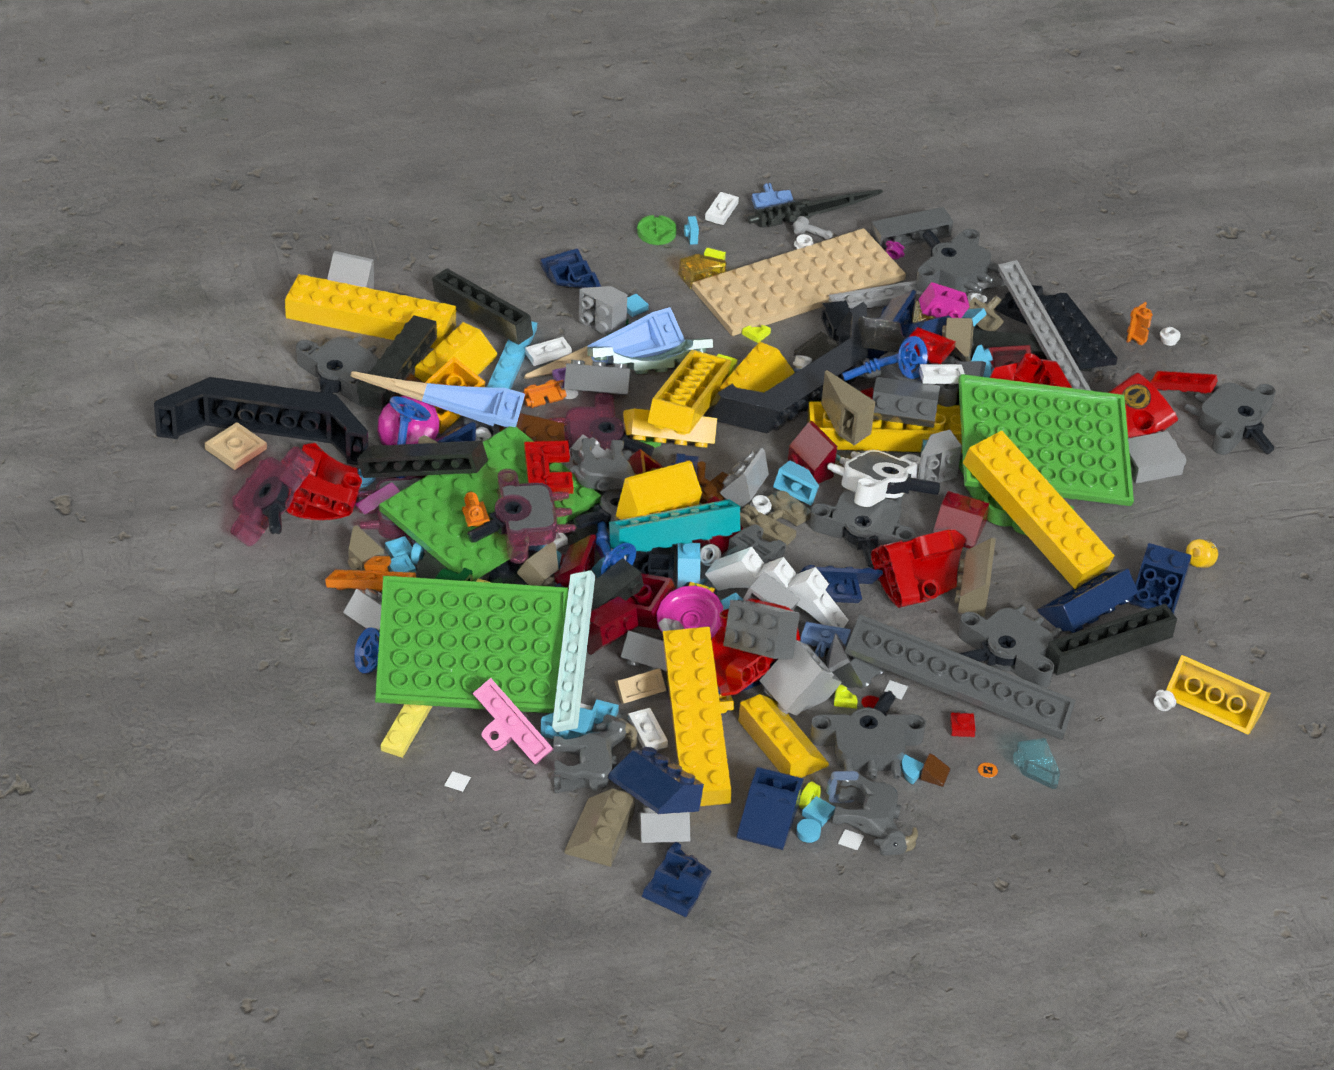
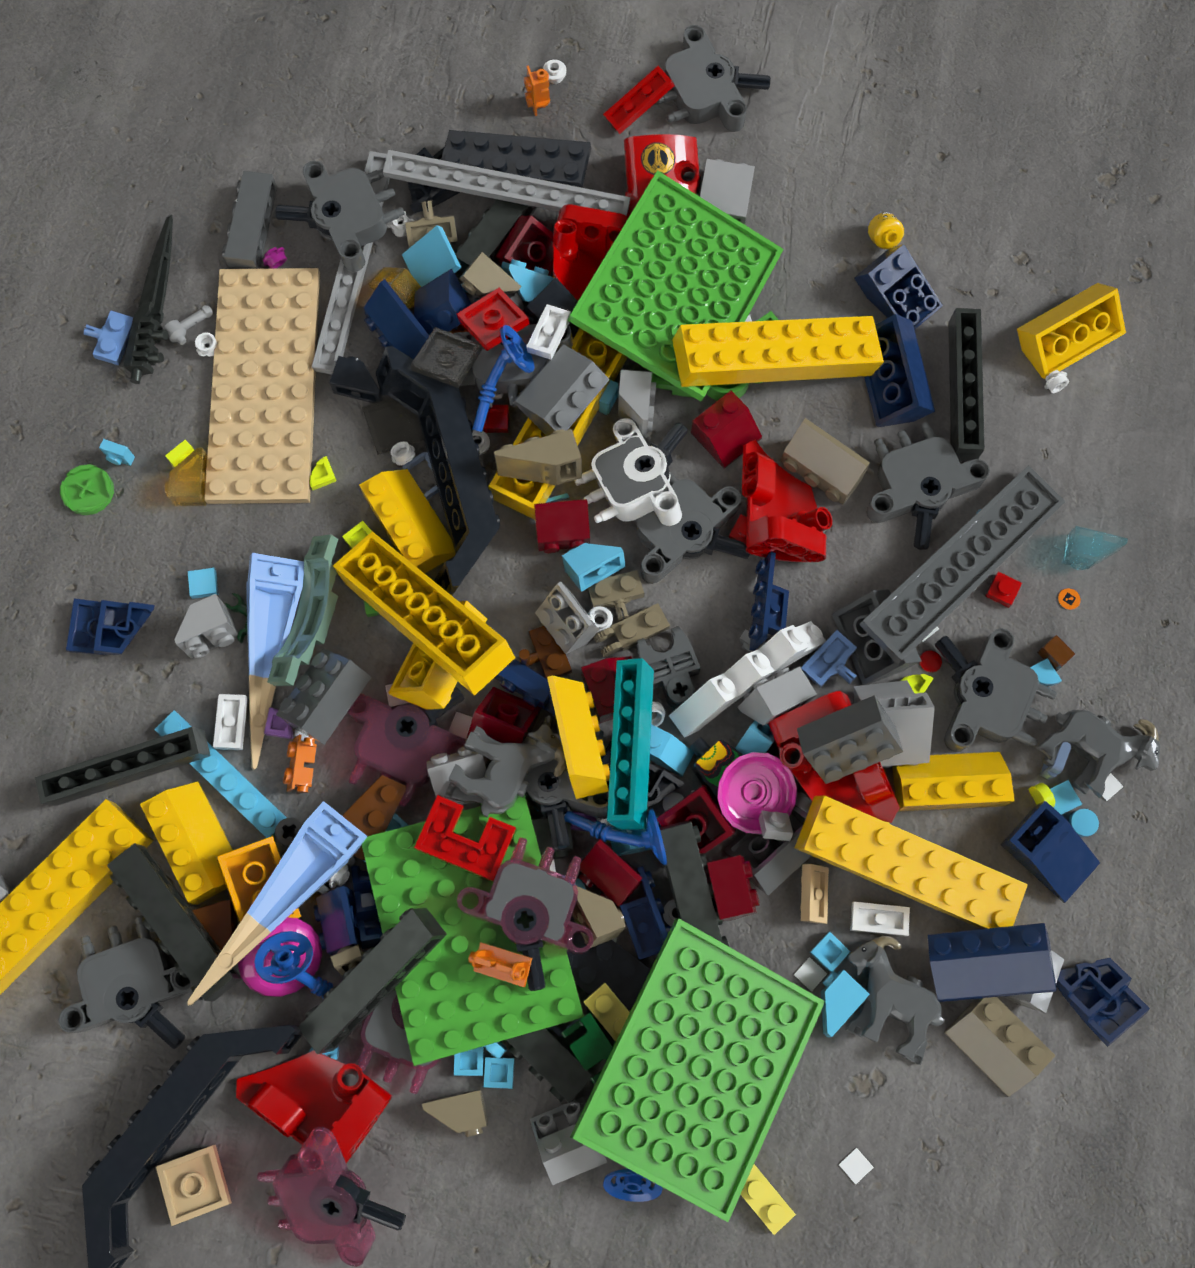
camera: 60 degrees left, 30 degrees up
(370, 578) = (516, 1123): orange plate -> none
(377, 498) = (390, 1056): magenta sticker -> none
(509, 724) = (823, 1078): bright pink plate -> none
(573, 651) = (770, 957): light aqua plate -> none
(721, 208) = (96, 399): white plate -> none
(836, 657) = (878, 668): flat silver slope -> none
(943, 301) = (420, 262): dark pink brick -> none

